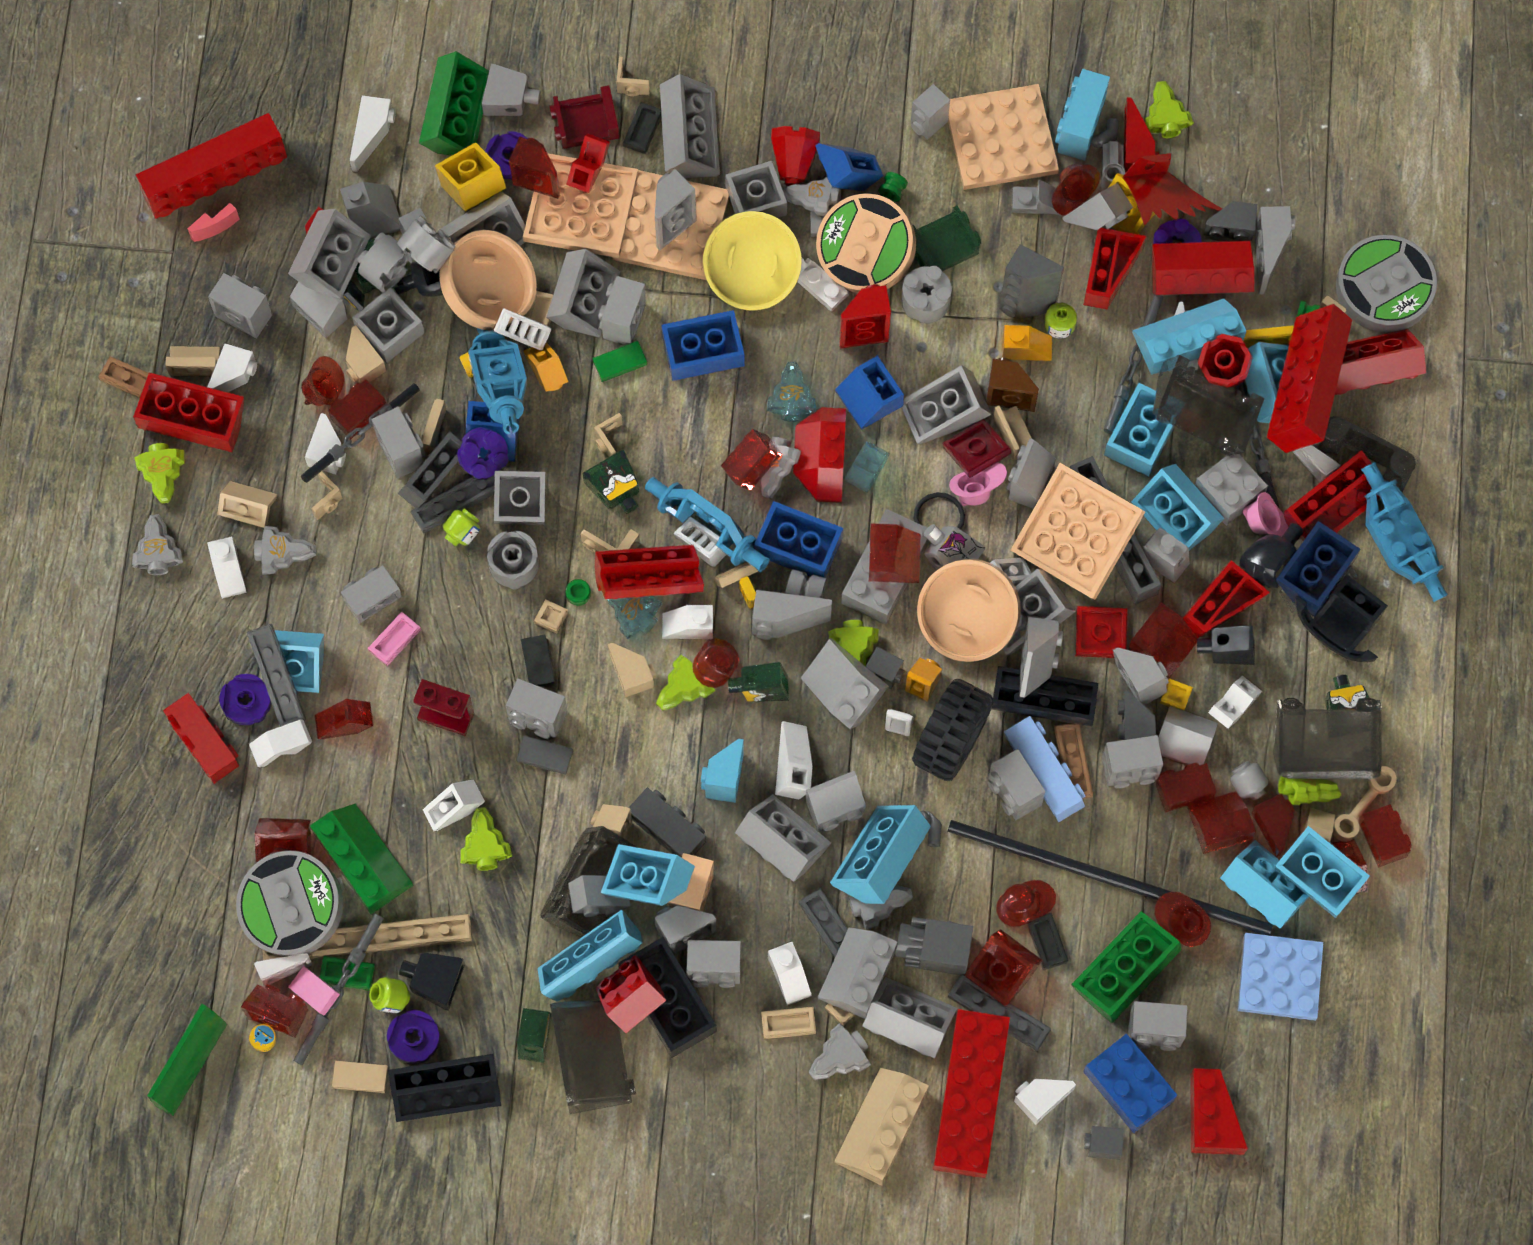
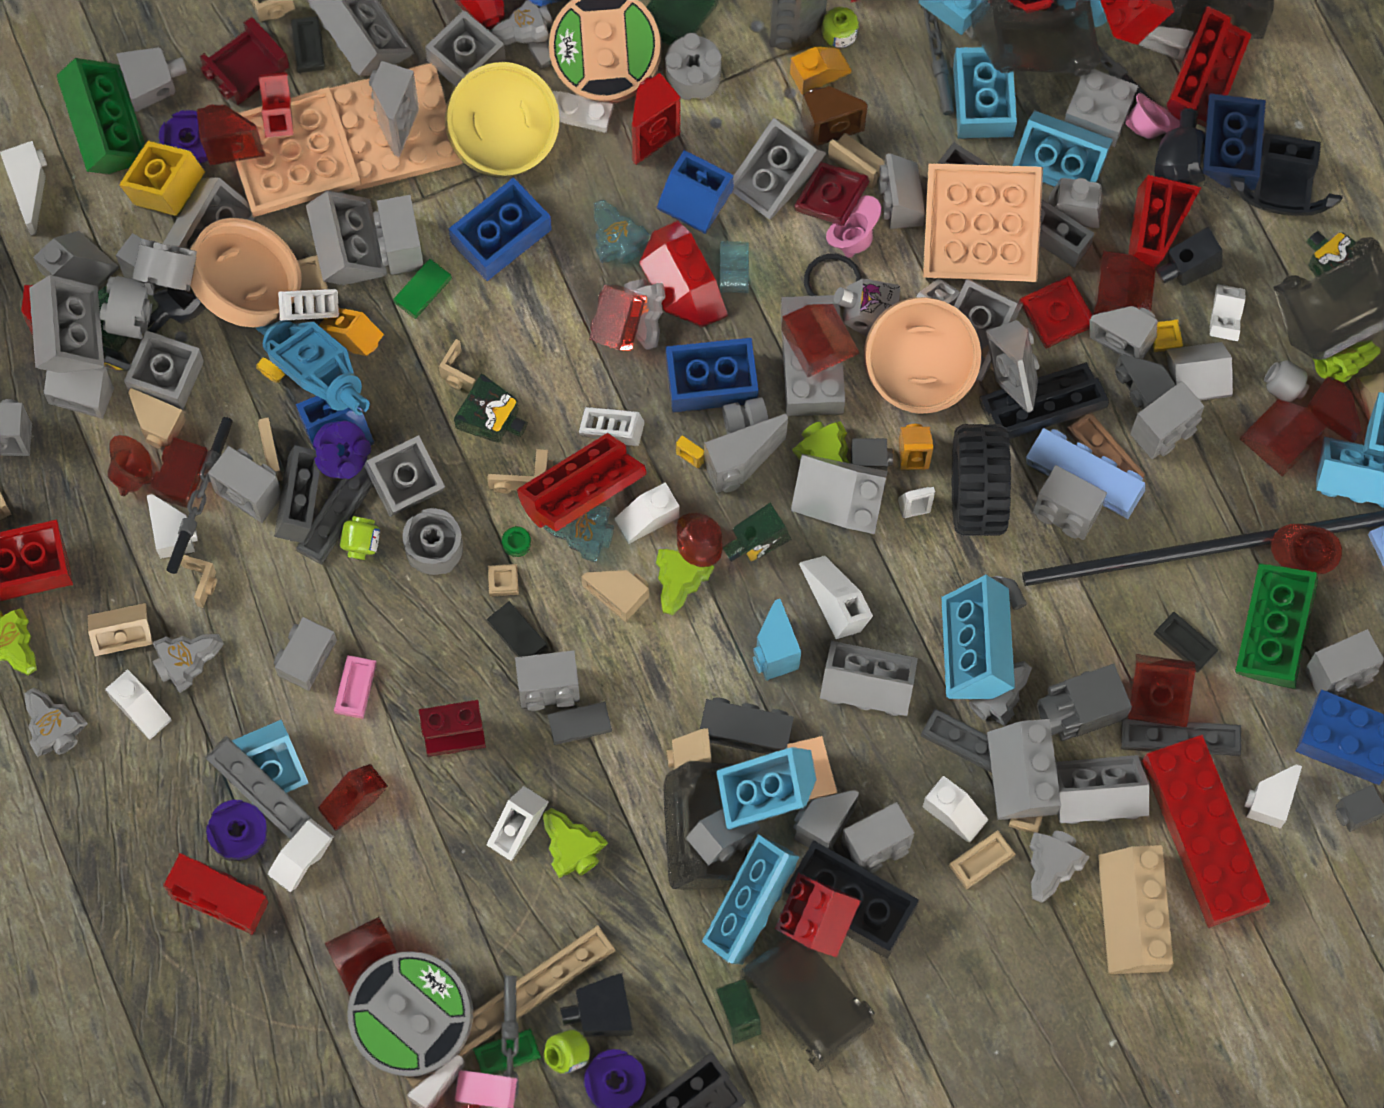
camera: 30 degrees left, 0 degrees up
(232, 368) = (25, 497): white slope -> none
(361, 856) = (452, 927): green slope -> none
(692, 502) = (605, 390): dark azure plate -> none
(735, 574) = (670, 436): tan tile -> none
(835, 802) = (902, 614): light grey slope -> none
(1025, 902) = (1142, 615): clear red piece -> none
(1185, 786) = (1230, 419): clear red brick -> none
(1401, 533) = (1288, 69): dark azure plate -> none

